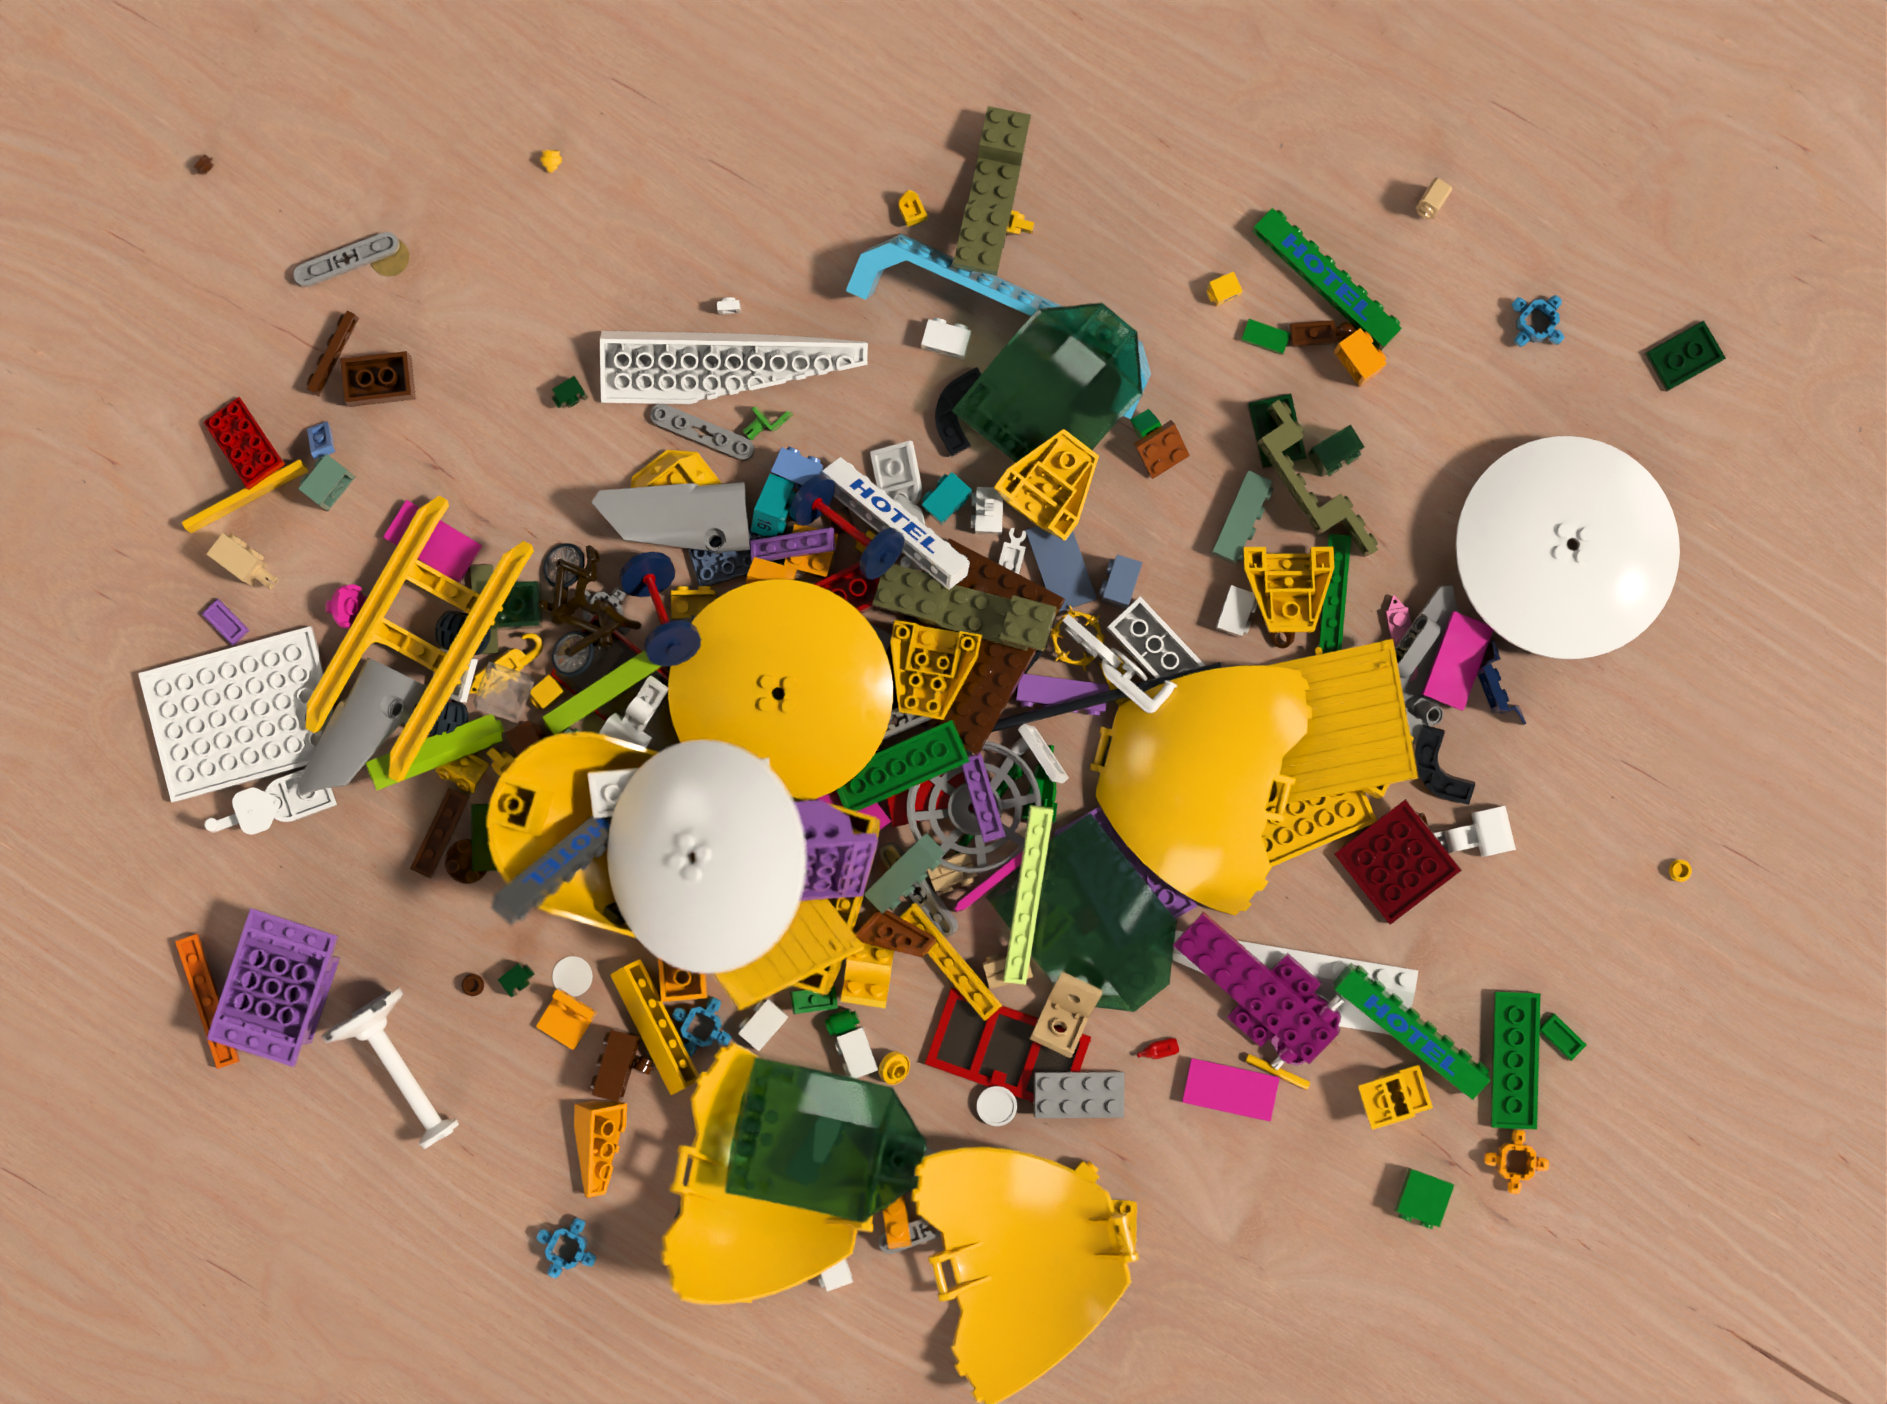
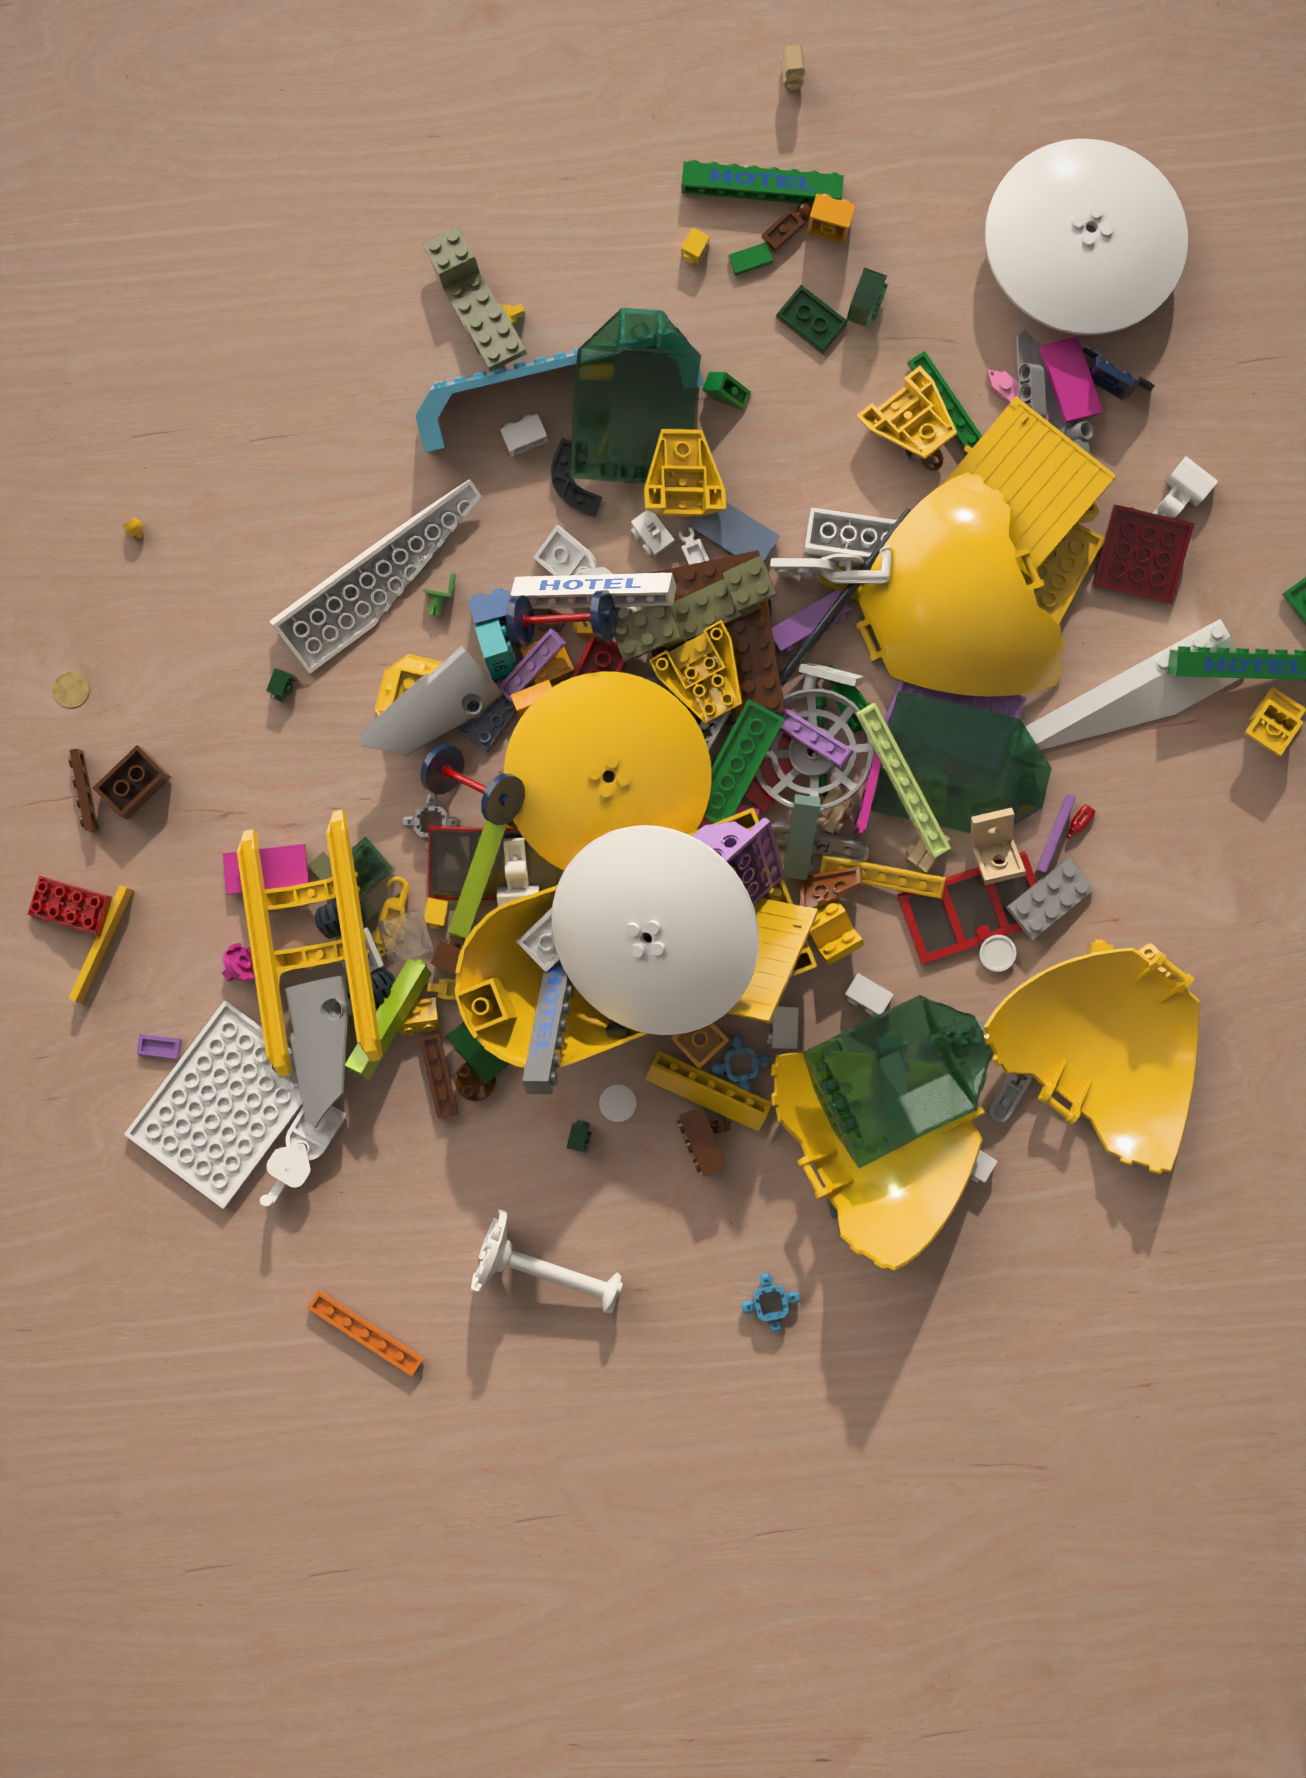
camera: 40 degrees left, 0 degrees up
(240, 561) = (135, 992): tan brick -> none
(275, 988) = (408, 1283): medium lavender wedge -> none
(320, 440) = (125, 859): medium blue plate -> none
(325, 267) = (28, 732): light grey piece -> none
(326, 482) = (153, 886): sand green brick -> none
(473, 985) = (550, 1166): reddish brown plate -> none
(566, 1019) = (638, 1137): light orange bracket -> none
(576, 649) = (434, 863): dark brown piece -> none
(597, 1135) = (726, 1201): light orange wedge -> none
(682, 424) = (380, 643): light grey piece -> none
(690, 602) = (488, 766): yellow bracket -> none
(728, 306) = (348, 533): white plate -> none
(810, 1001) = (806, 982): green hinge -> none
(842, 1022) = (839, 981): green brick -> none
(894, 1067) = (903, 984): yellow plate -> none
(897, 1224) = (998, 1094): light orange brick -> none
(911, 208) = (424, 361): yellow plate -> none
(947, 497) = (616, 544): teal brick -> none
(1055, 633) = (788, 594): yellow piece -> none
(1121, 582) = (788, 508): sand blue brick -> none
(1128, 1043) = (1055, 834): none -> medium lavender tile
(1161, 449) = (741, 393): dark orange plate -> none
(1230, 1089) = (1154, 809): dark pink tile -> none
(1236, 612) = (886, 467): white brick -> none
(1242, 516) = (836, 397): sand green brick -> none
(1264, 1065) = (1175, 770): yellow bar -> none
(1272, 1002) = (1134, 723): magenta piece -> none
(1331, 512) = (889, 353): olive bracket -> none
(1432, 774) = (1126, 475): black plate -> none
(1528, 333) = (933, 85): dark azure piece -> none
(1685, 356) = (1056, 45): dark green tile -> none

